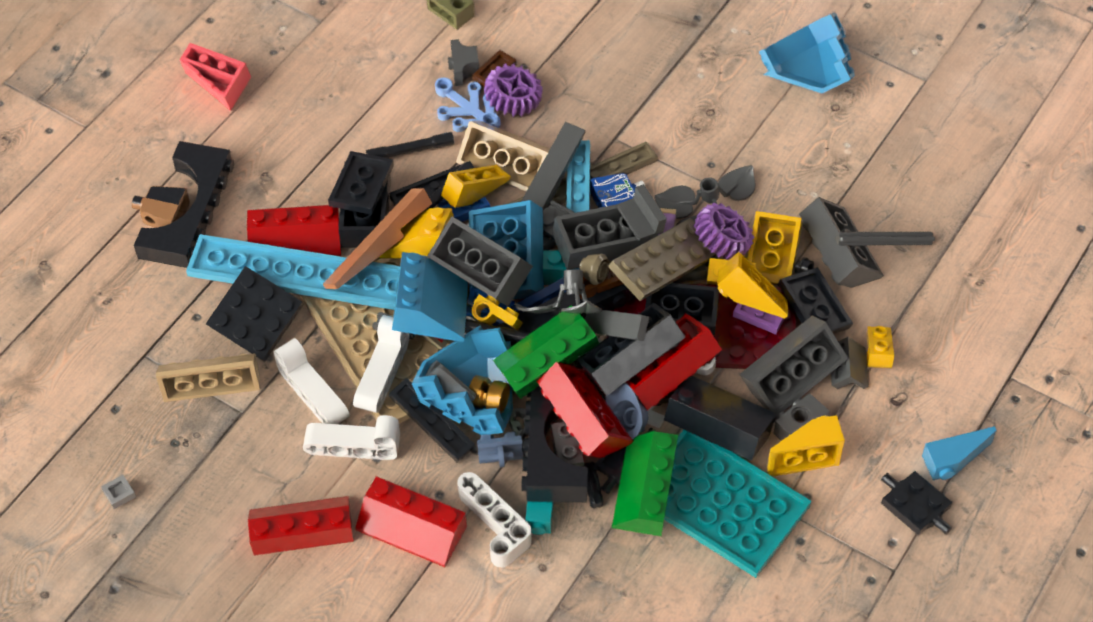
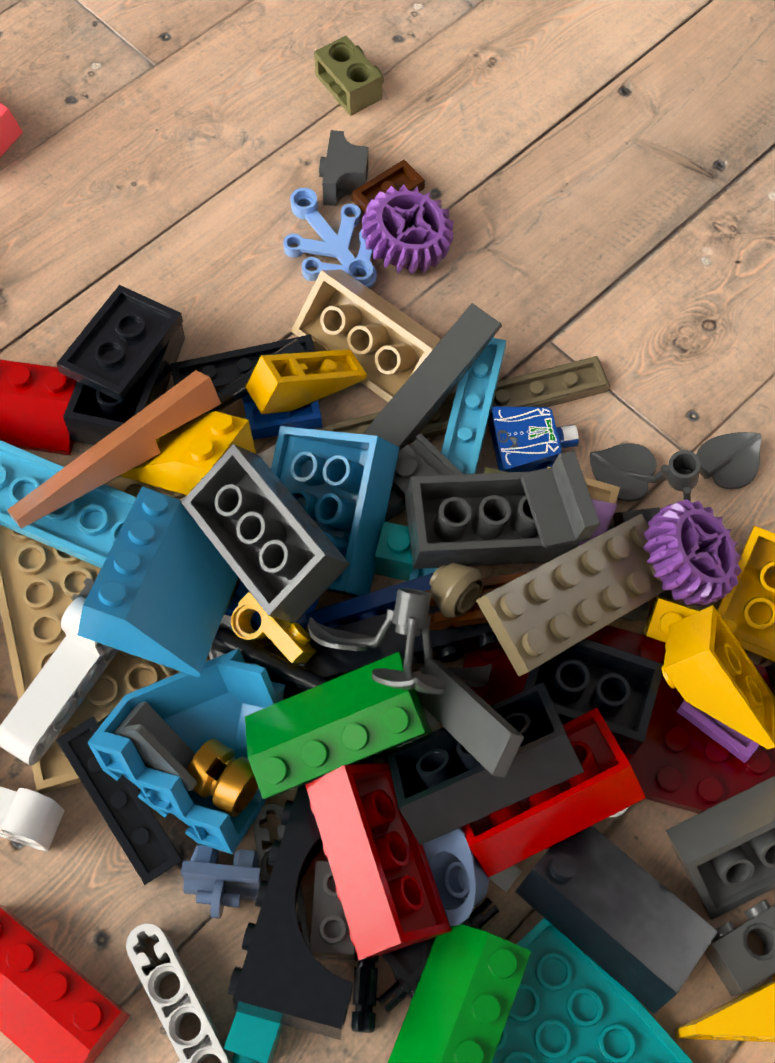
camera: 10 degrees right, 10 degrees up
(435, 141) = (185, 293): black piece -> none

